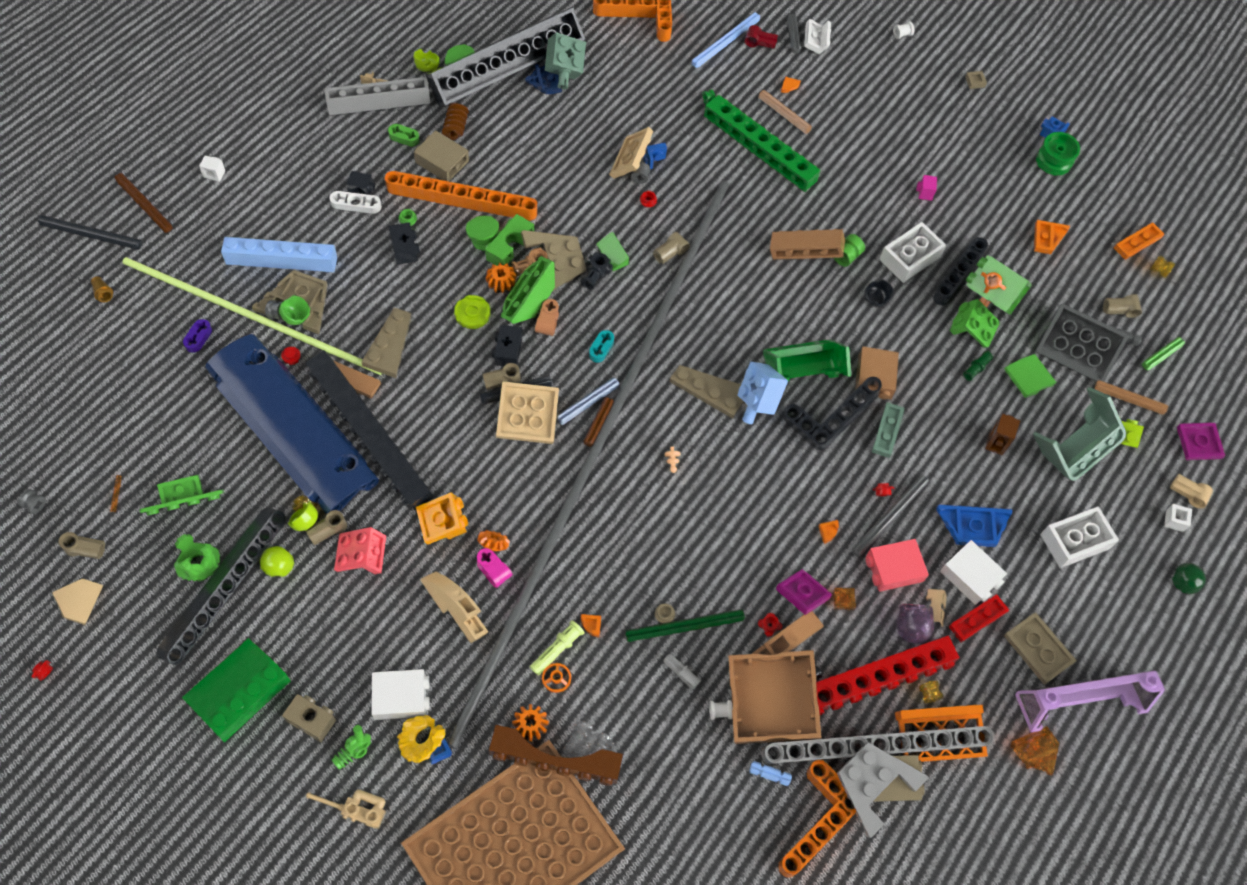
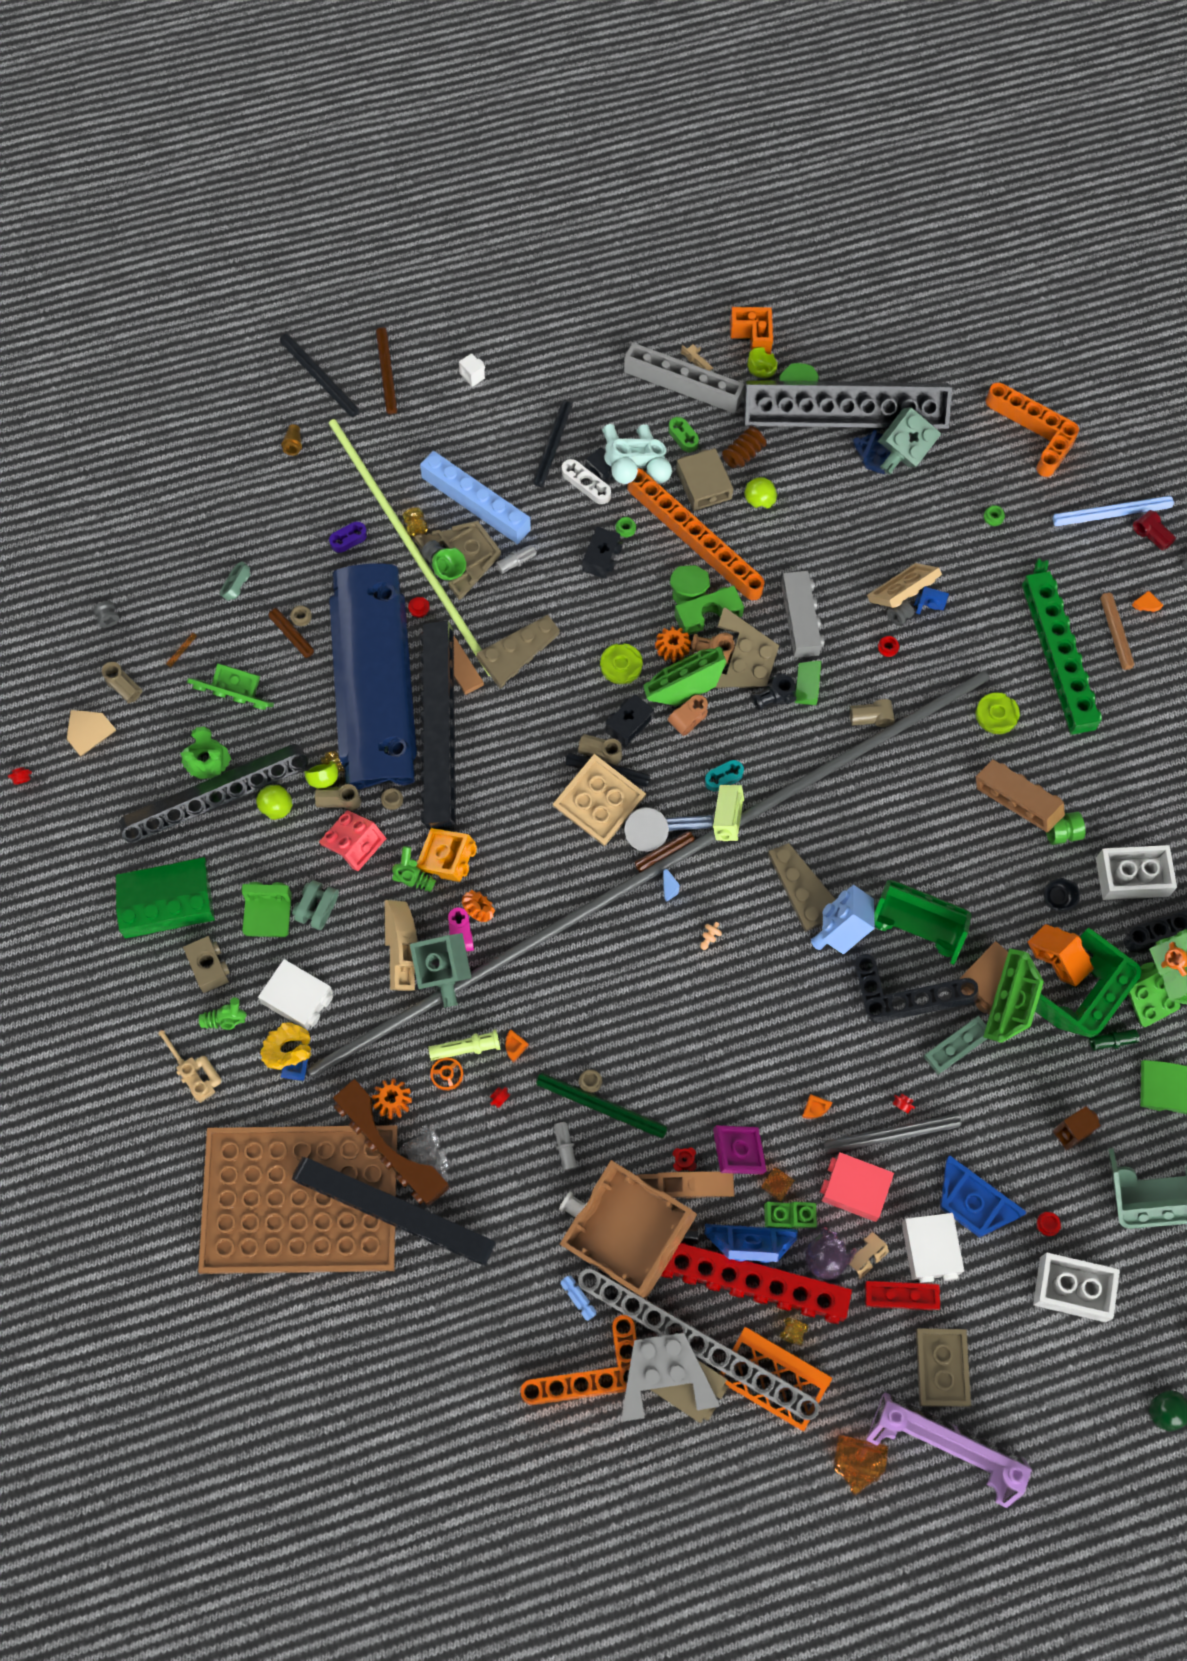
camera: 40 degrees right, 5 degrees up
(126, 416) = (233, 583): none -> sand green plate
(198, 408) = (298, 611): none -> dark tan plate
(200, 429) = (291, 633): none -> reddish brown axle
(244, 296) = (414, 519): none -> clear yellow wheel
(311, 189) = (552, 443): none -> black axle
(329, 645) = (266, 909): none -> bright green bracket
(341, 282) = (515, 559): none -> light grey axle
(359, 627) = (311, 893): none -> sand green brick
(369, 504) = (392, 799): none -> dark tan plate
(381, 163) = (630, 454): none -> light aqua piece
(403, 37) = (753, 324): none -> orange brick
(424, 549) = (410, 874): none -> bright green piece
(487, 145) = (760, 492): none -> lime hair
(506, 605) = (441, 964): none -> sand green brick
(575, 209) = (801, 614): none -> light grey brick
(576, 412) = (646, 829): none -> tile
(593, 804) = (394, 1211): none -> black beam
(609, 667) = (499, 1096): none -> red plate
(619, 441) = (670, 885): none -> light blue slope
(626, 367) = (728, 812): none -> yellowish green window
(654, 80) = (994, 511): none -> bright green plate
(750, 203) = (997, 713): none -> lime tile
(858, 650) = (751, 1242): none -> blue wing
(867, 614) = (790, 1215): none -> bright green slope
(907, 327) = (1063, 952): none -> orange brick
(907, 372) = (1015, 997): none -> bright green wedge
(954, 330) = (1116, 979): none -> green windscreen
(1029, 509) = (1048, 1224): none -> red plate

